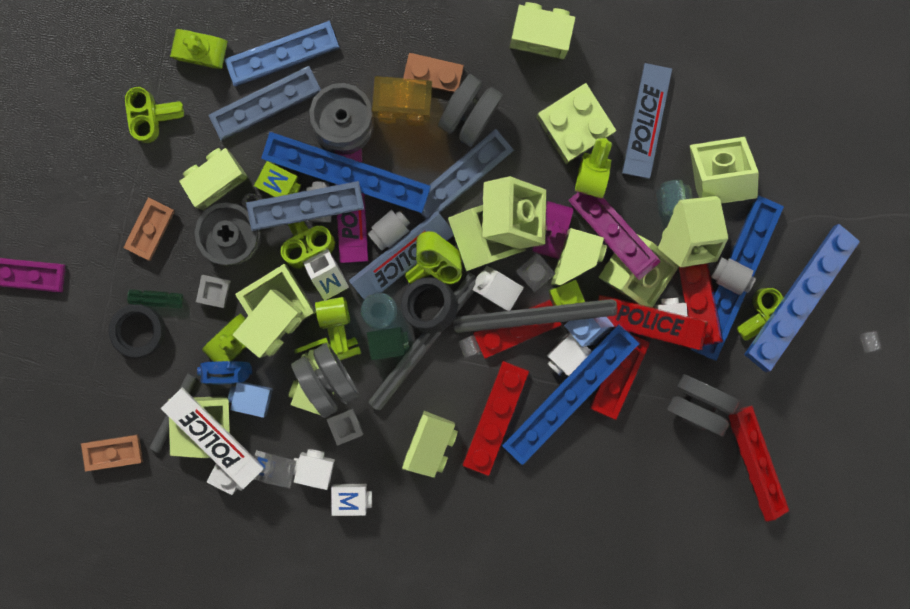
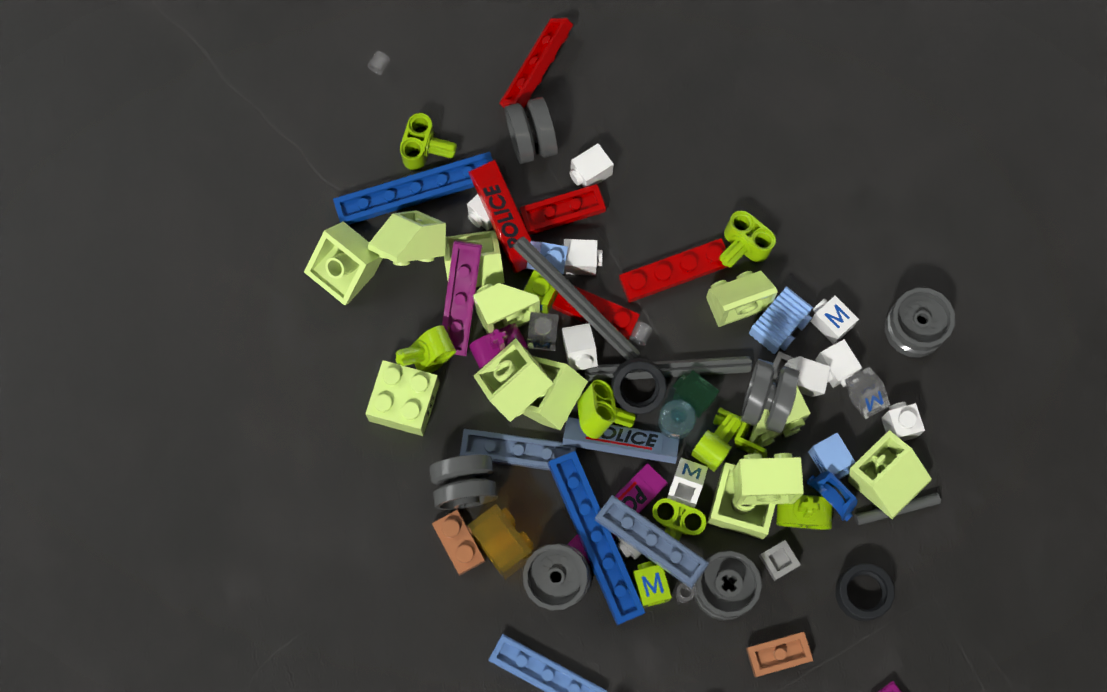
camera: 135 degrees left, 15 degrees down
(112, 452) = (972, 527): nougat plate -> none
(155, 298) = (827, 601): clear green axle -> none
(212, 438) = (890, 452): white tile -> none
(213, 178) = (695, 637): yellowish green slope -> none
(264, 103) = (598, 653): sand blue tile -> none
(285, 576) = (919, 322): none -> dark grey wheel
(324, 433) = (812, 375): none -> white brick
(384, 459) = (780, 320): none -> light blue brick
(389, 229) = (609, 467): light grey brick -> none
(469, 489) = (744, 241): none -> lime beam
(542, 30) = (354, 482): yellowish green brick -> none
(571, 394) = (609, 228): blue plate -> none
(633, 427) = (591, 167): none -> white brick
(646, 121) = (354, 351): sand blue tile -> none
(669, 196) = (397, 279): clear light blue head -> none
(700, 299) = (456, 196): red plate -> none
(733, 276) = (417, 187): light grey brick -> none
(801, 298) = (390, 128): plate -> none

